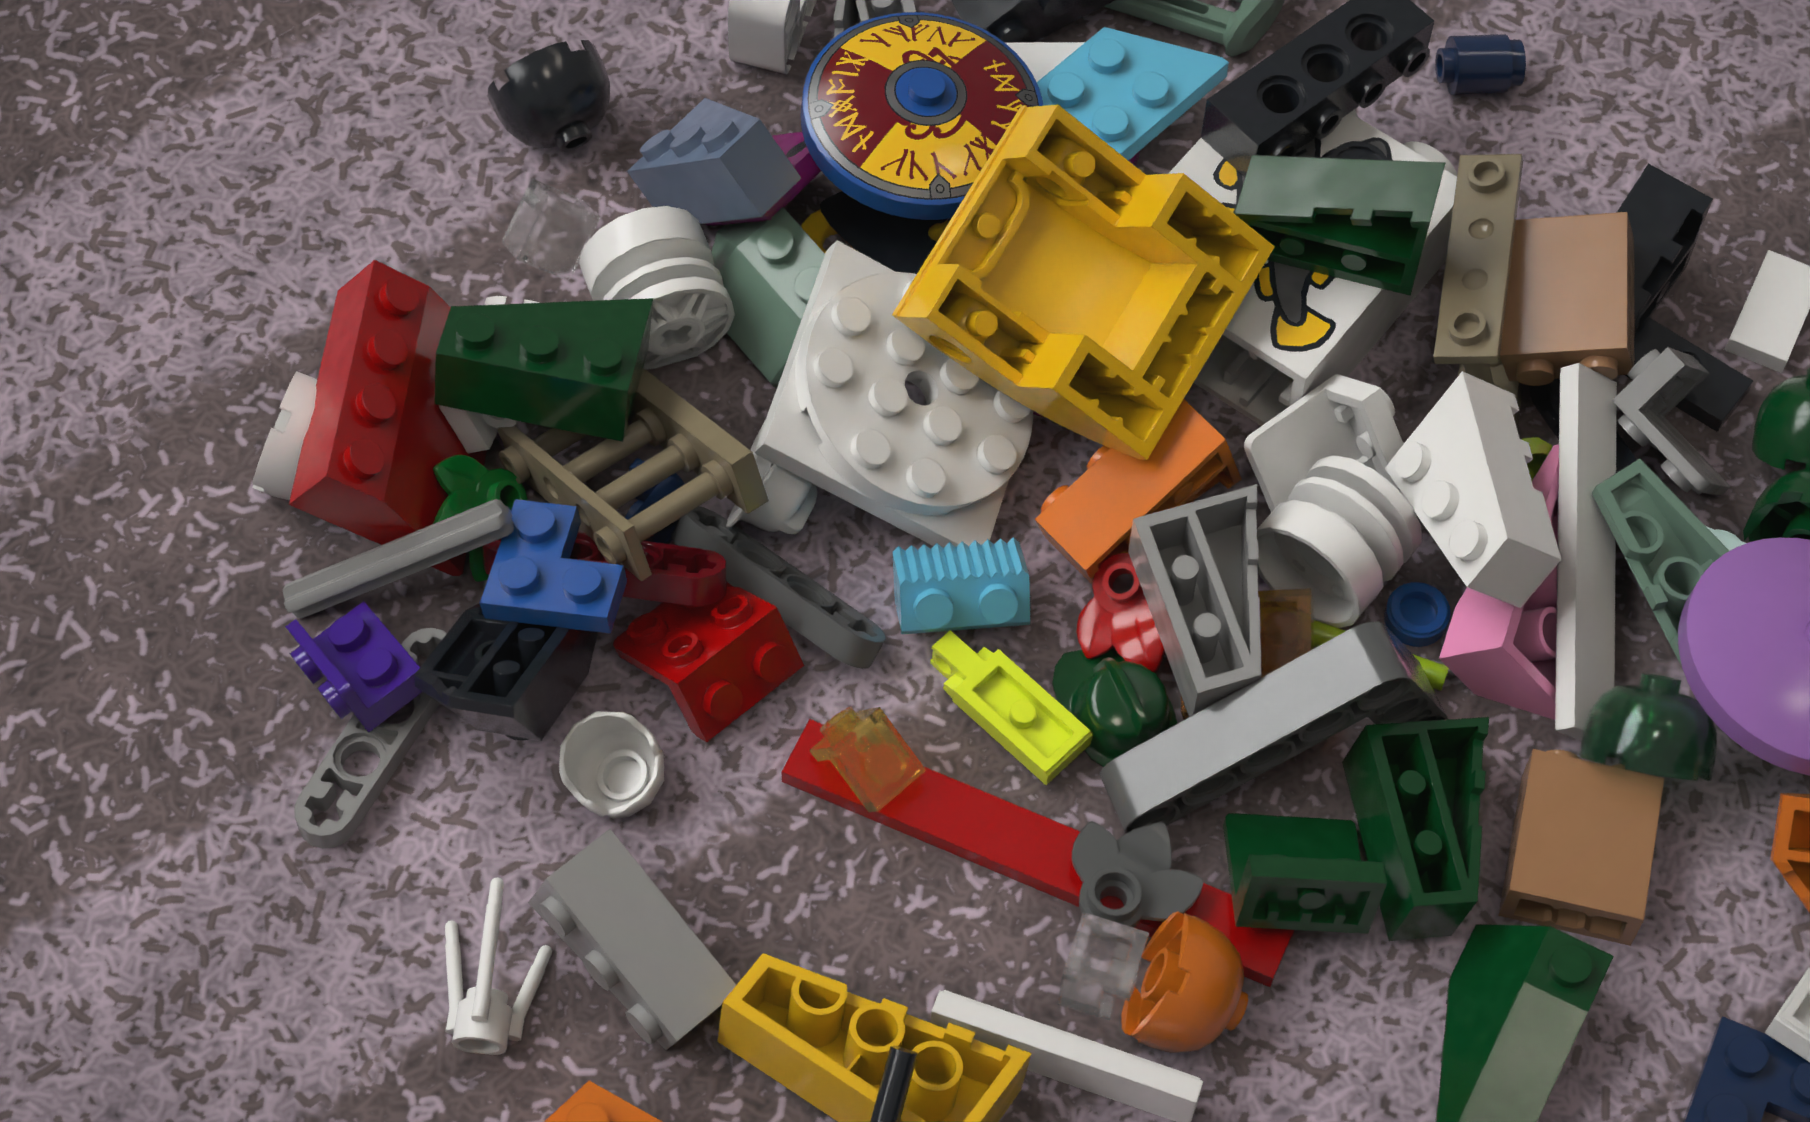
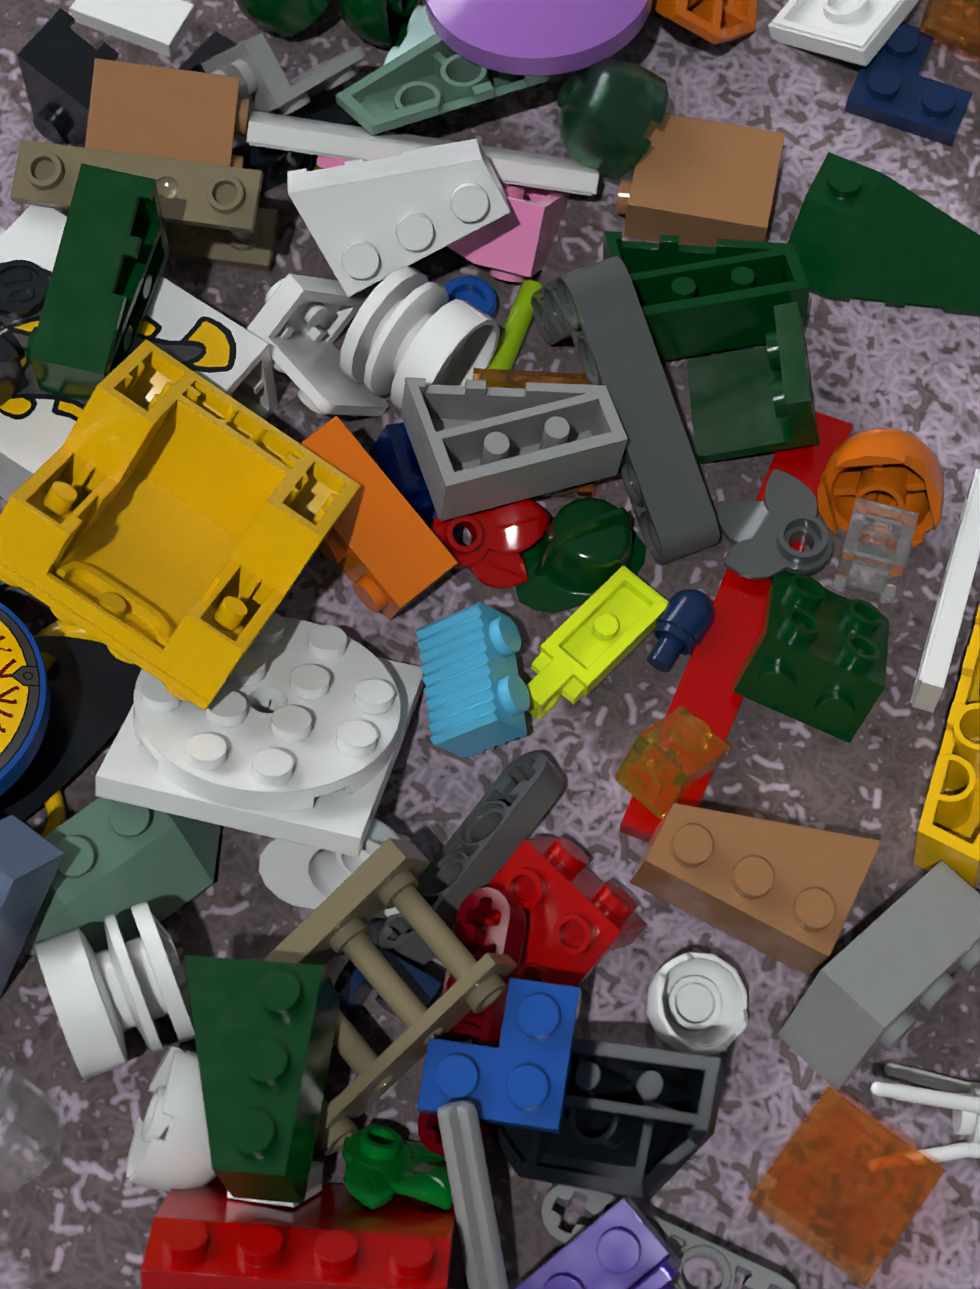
camera: 90 degrees left, 5 degrees up
(427, 891) = (846, 1187): none -> clear orange plate
(731, 821) = (758, 879): none -> medium nougat wedge
(990, 905) = (817, 656): none -> dark green bracket
(1025, 788) = (681, 627): none -> dark blue cylinder

